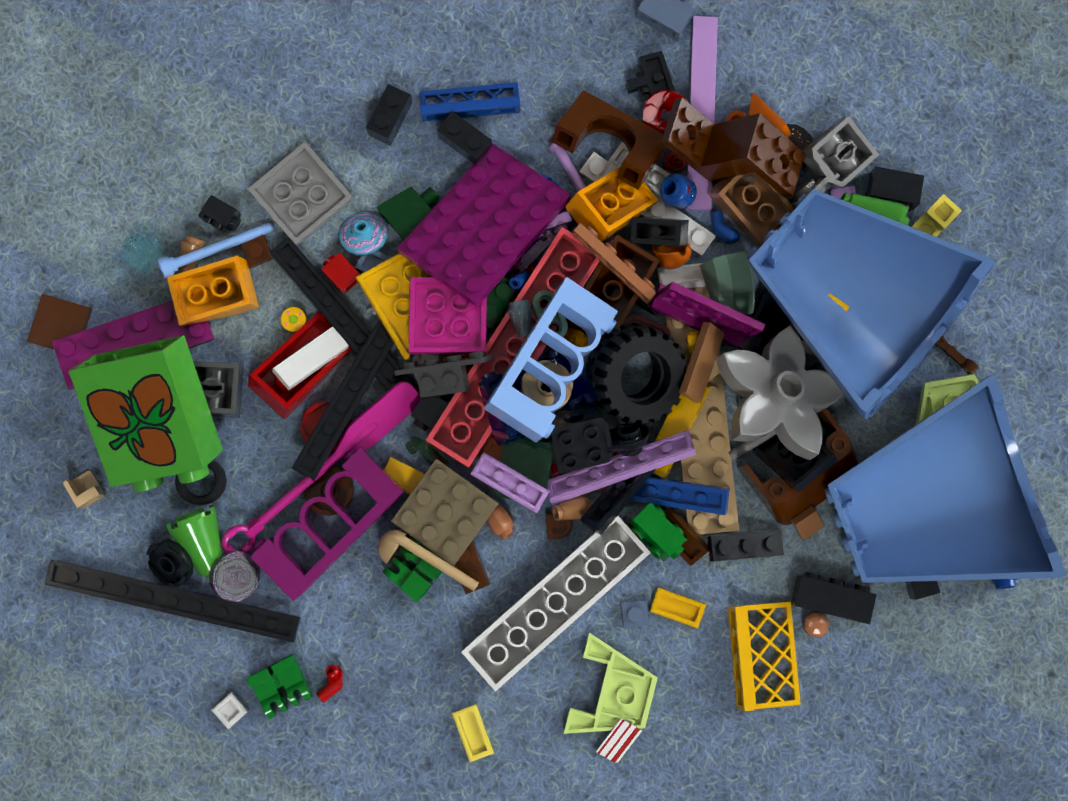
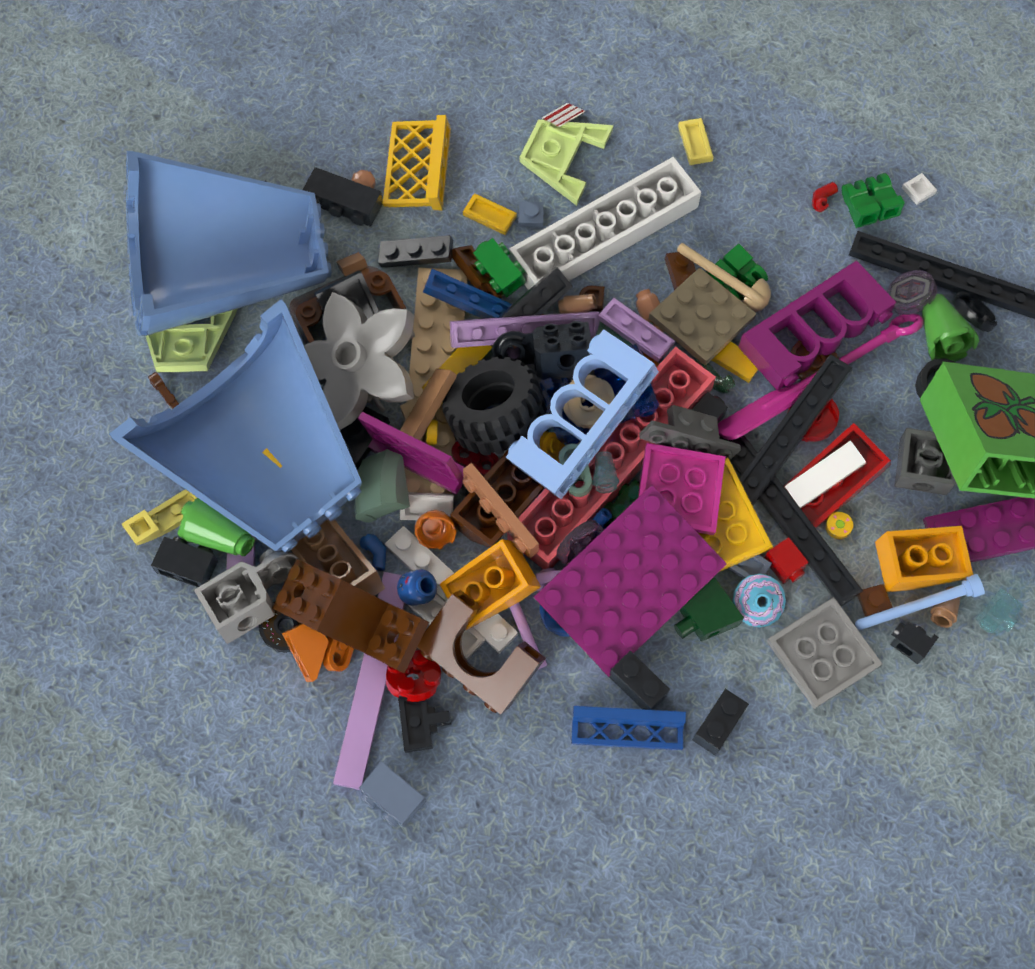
camera: 170 degrees left, 15 degrees down
(659, 231) = (444, 545): black brick -> none

